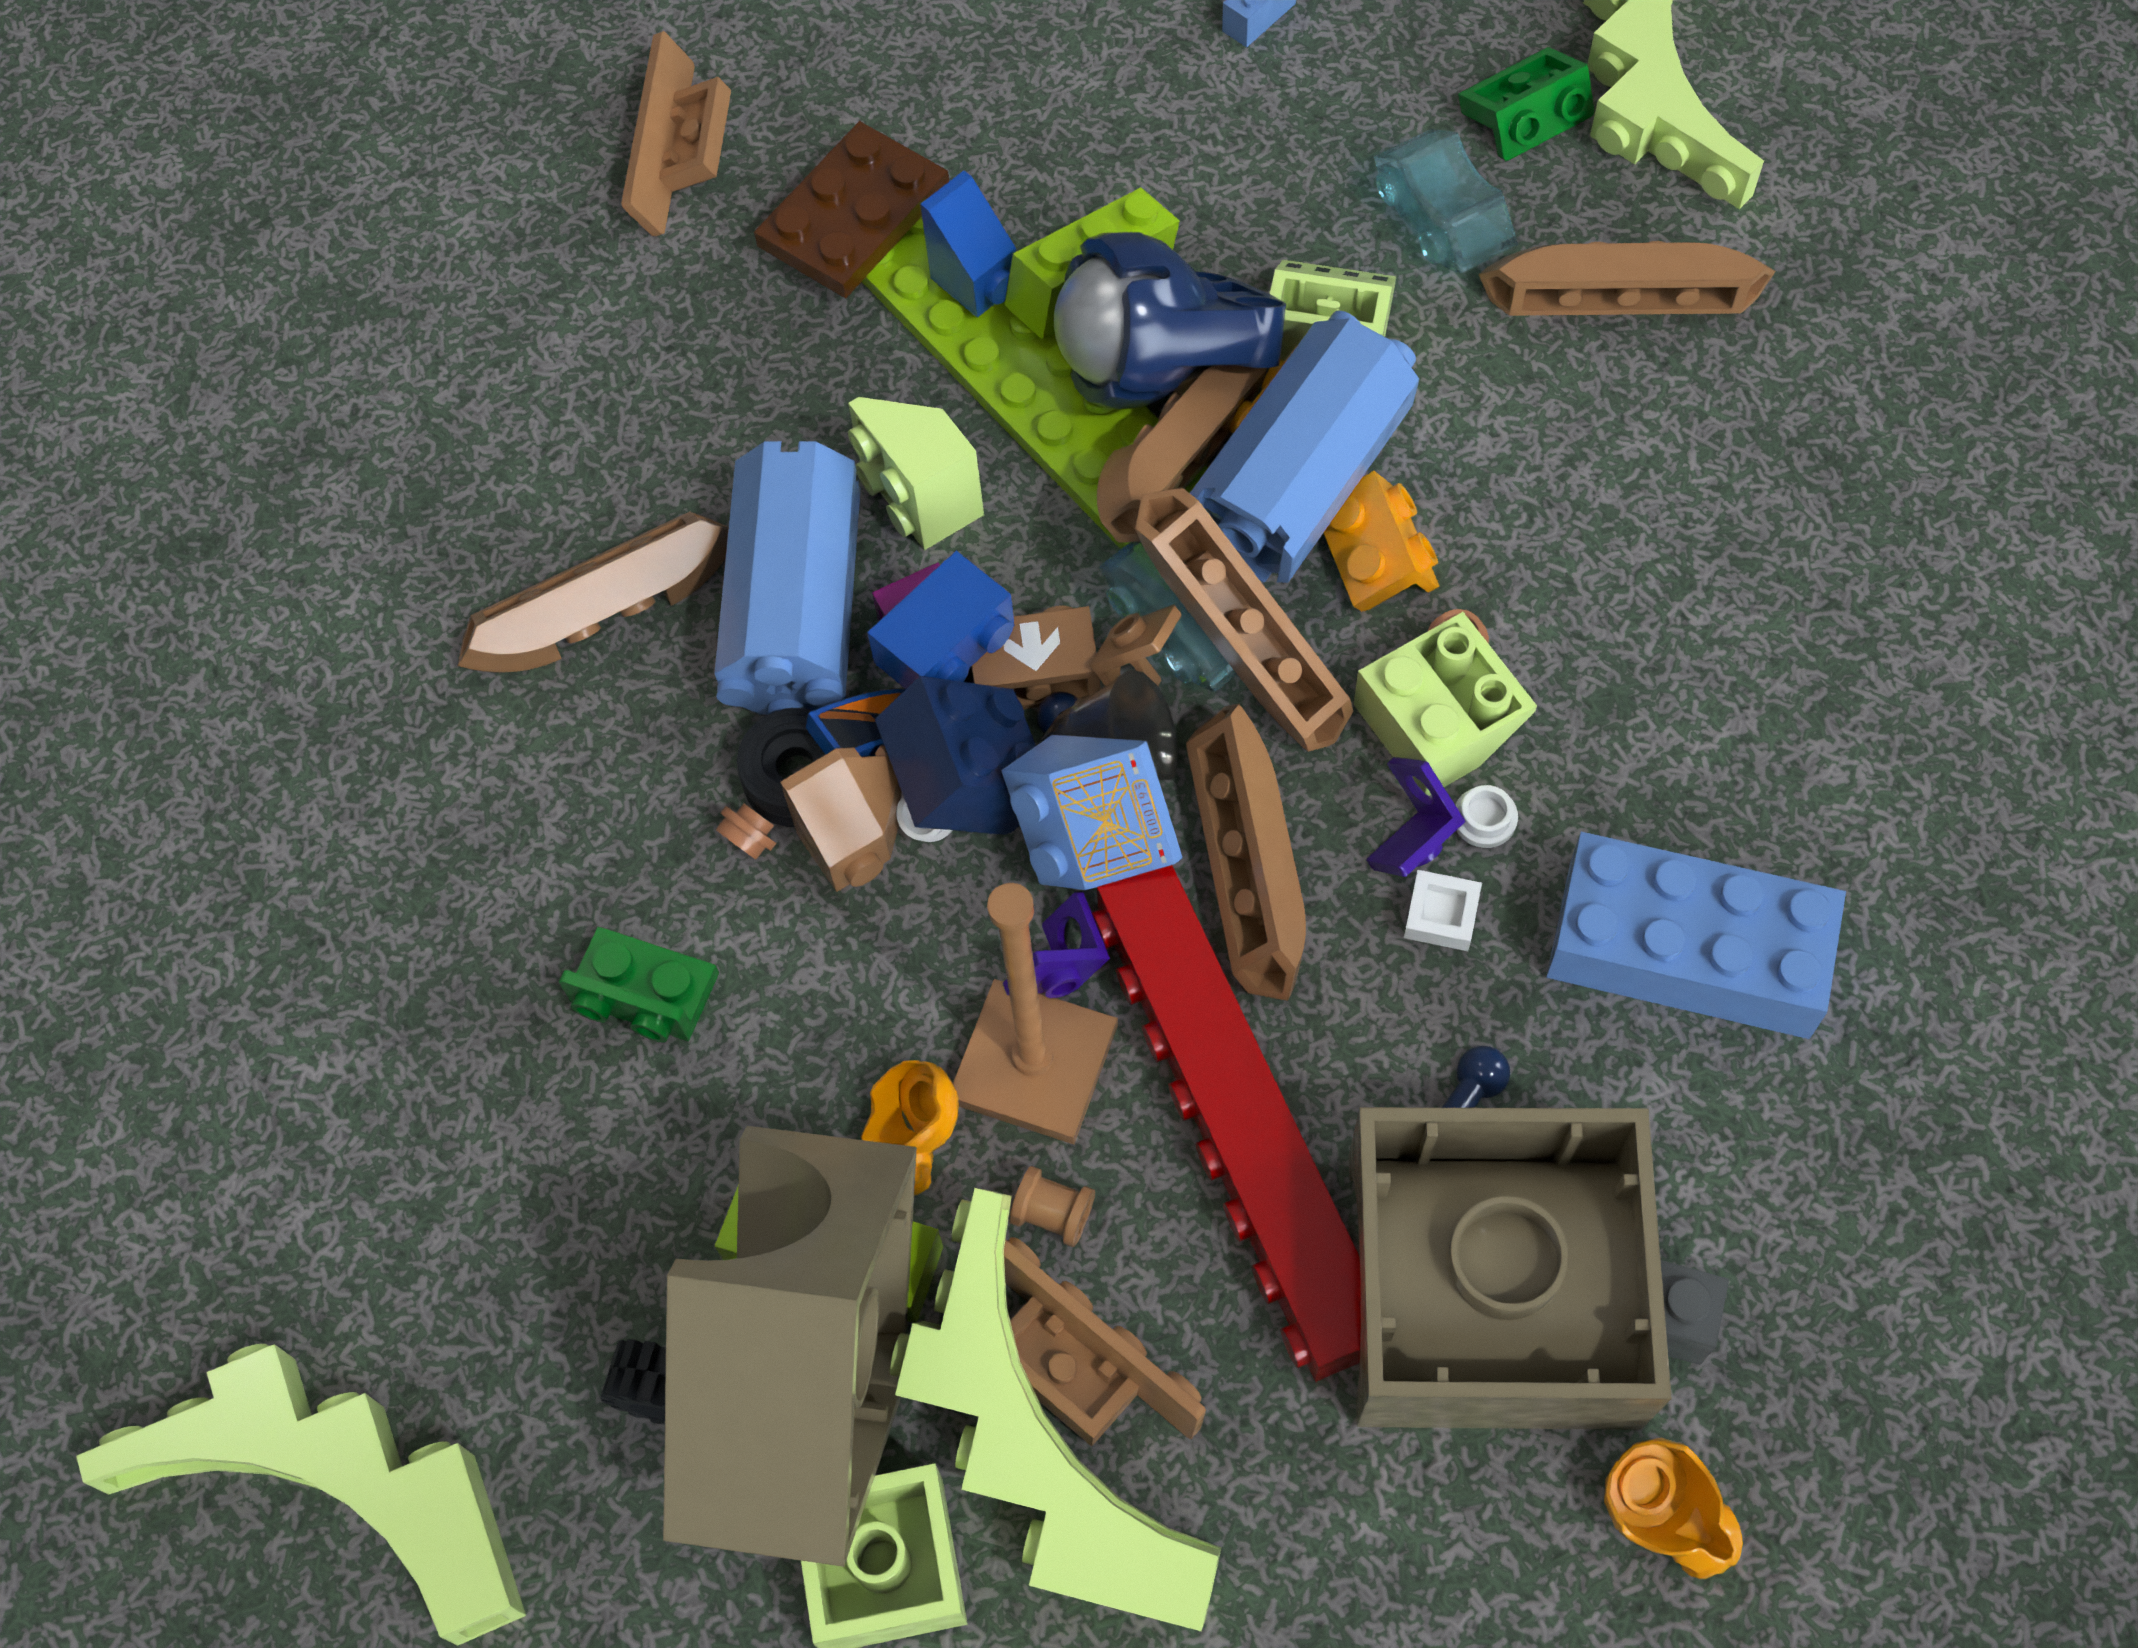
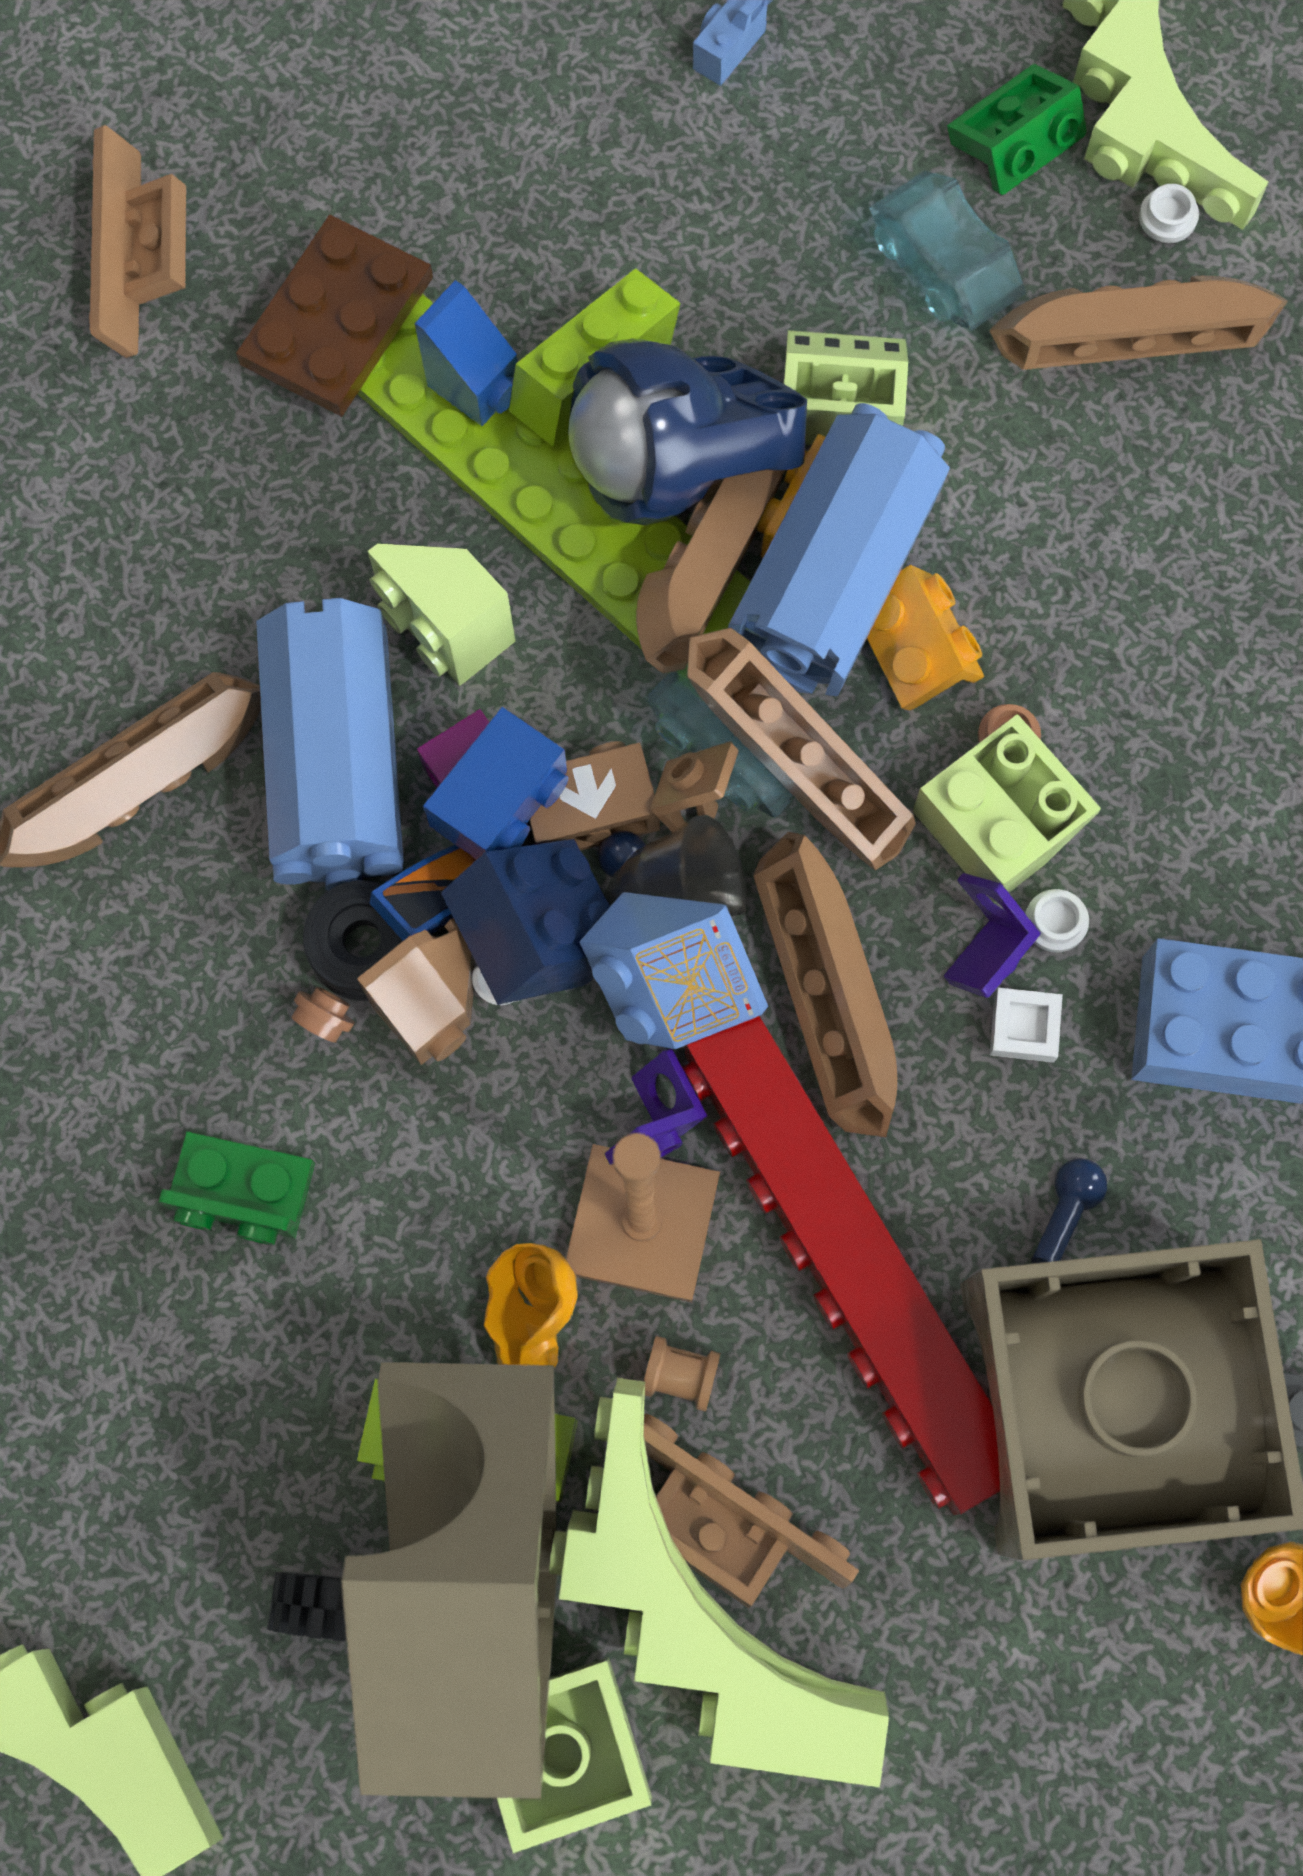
camera: 10 degrees left, 10 degrees up
(1667, 187) = (1169, 213): none -> white plate

